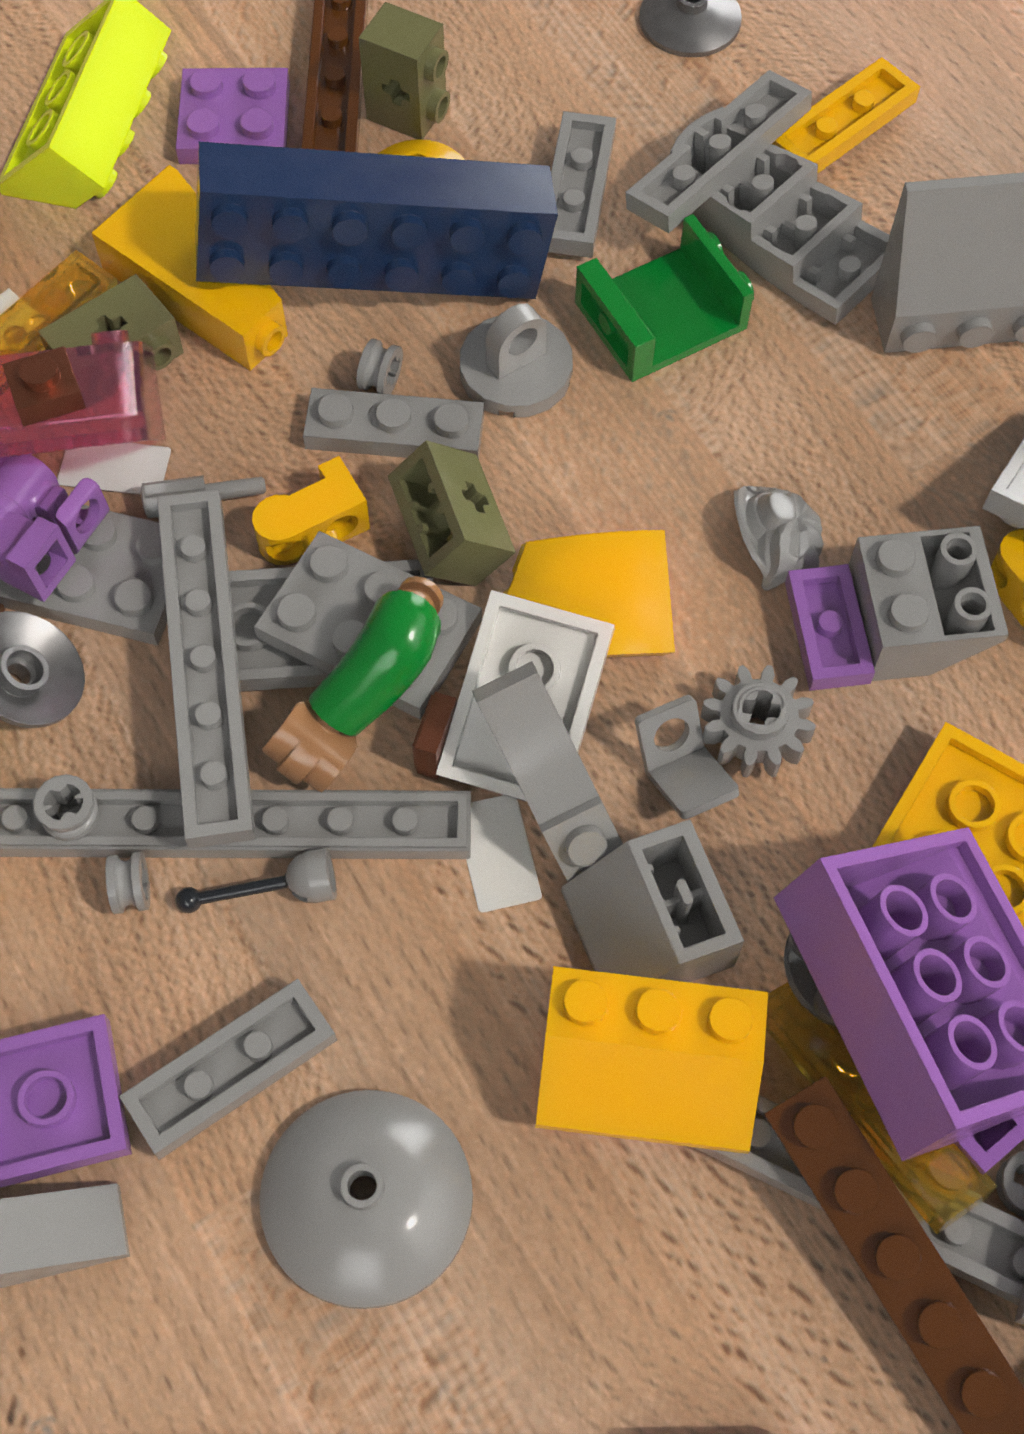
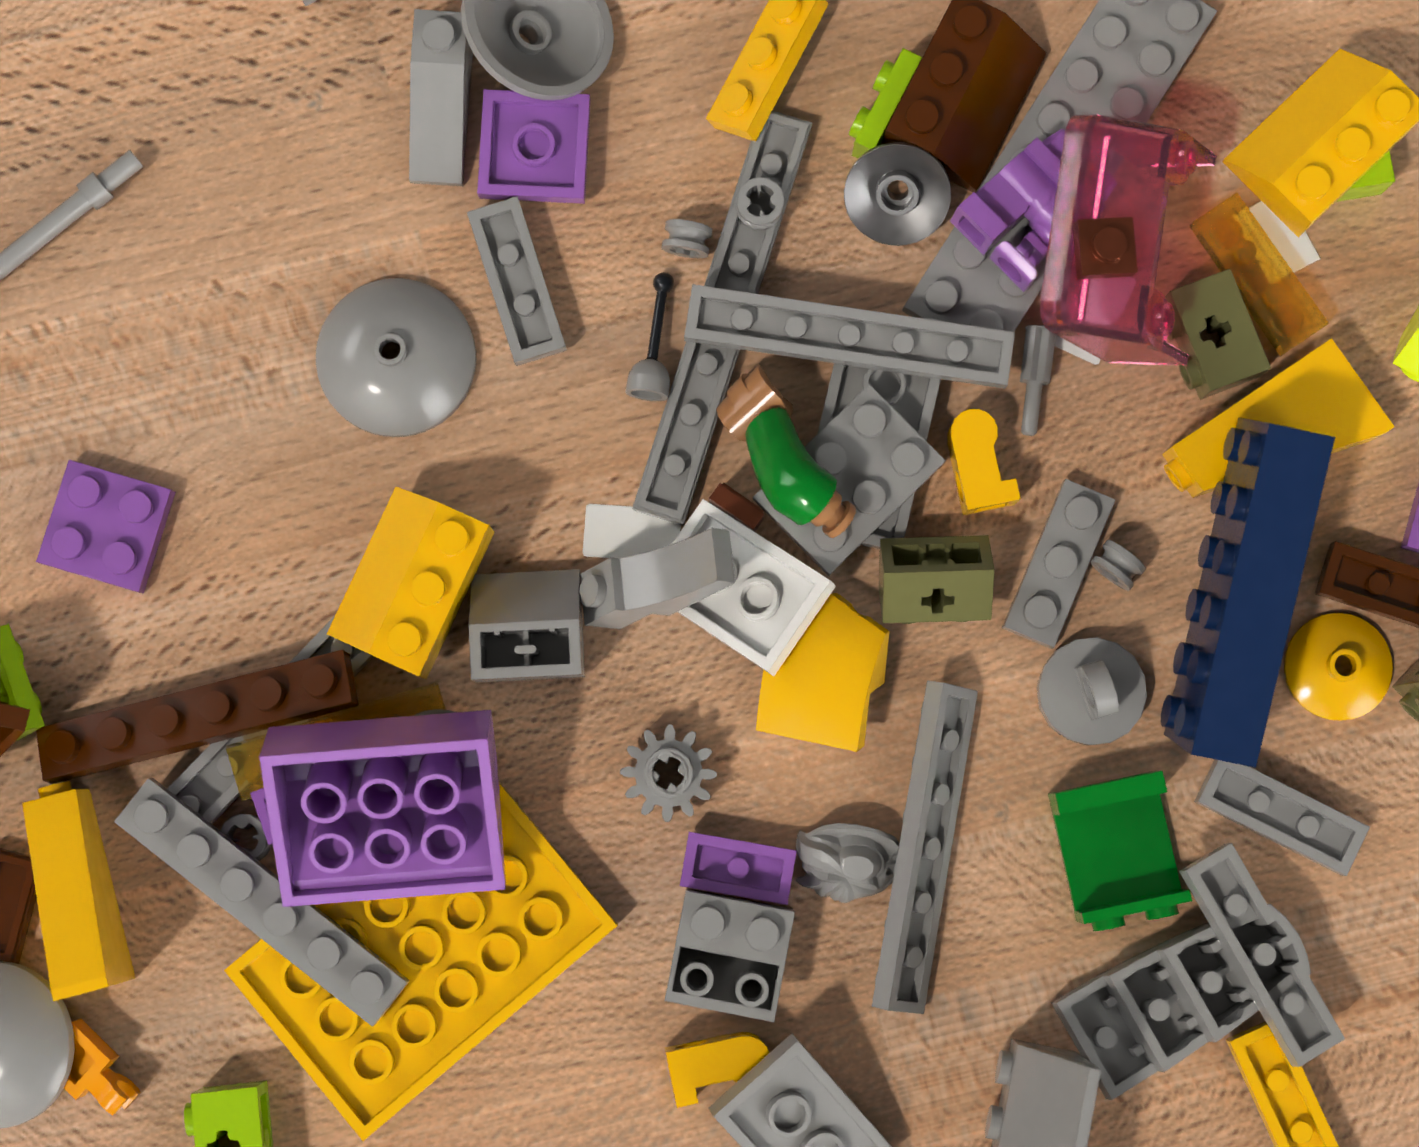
camera: 110 degrees right, 20 degrees up
(685, 769) = (647, 700): light grey bracket -> none
(756, 458) = (924, 848): none -> light grey plate

